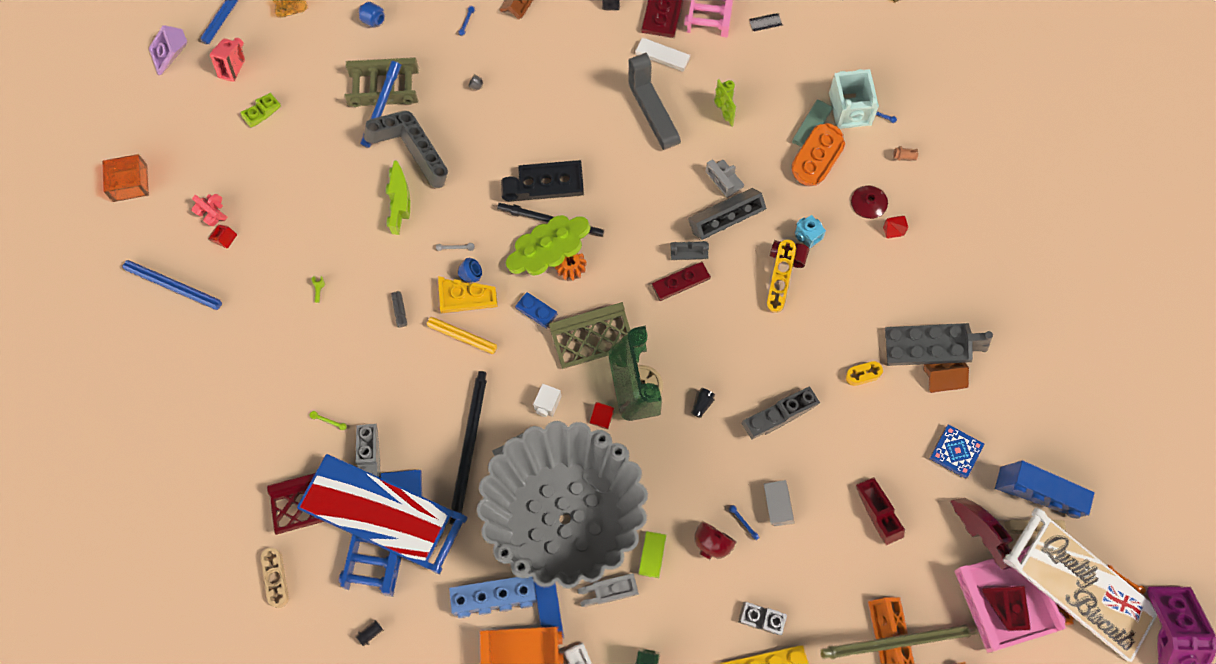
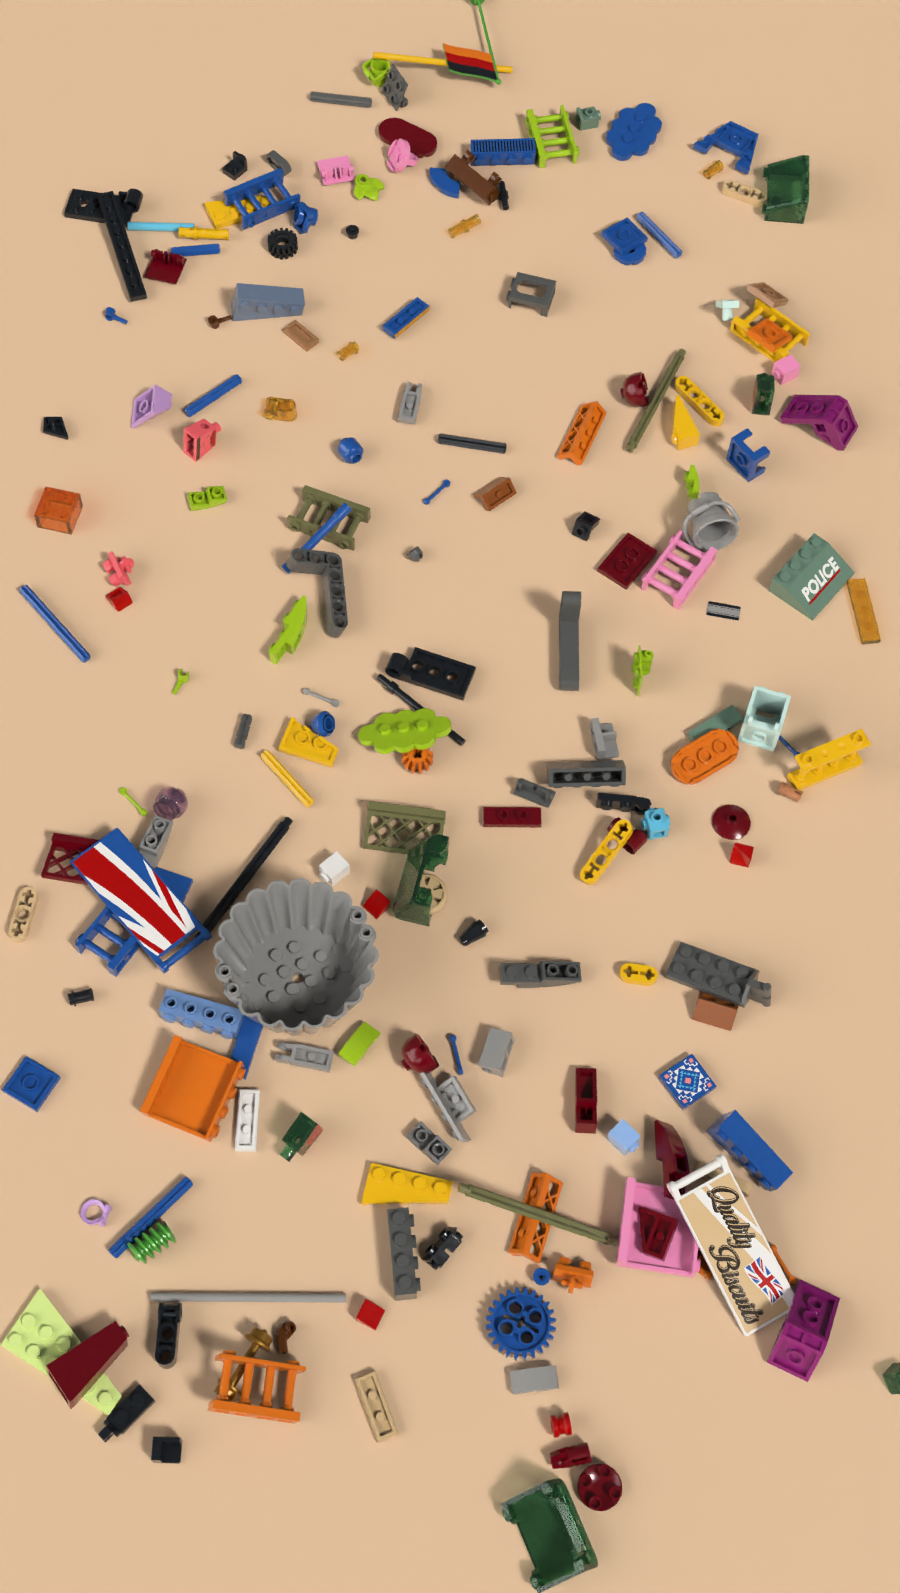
camera: 20 degrees right, 5 degrees down
(85, 103) = (55, 427): none -> black piece
(365, 407) = (170, 803): none -> piece
(536, 310) = (365, 785): blue plate -> none
(663, 54) = (606, 600): white tile -> none
(765, 569) = (452, 1101): none -> light grey bracket
(771, 225) = (623, 803): none -> black hinge
(927, 111) = (828, 760): none -> yellow fence
(932, 529) = (624, 1137): none -> light blue brick

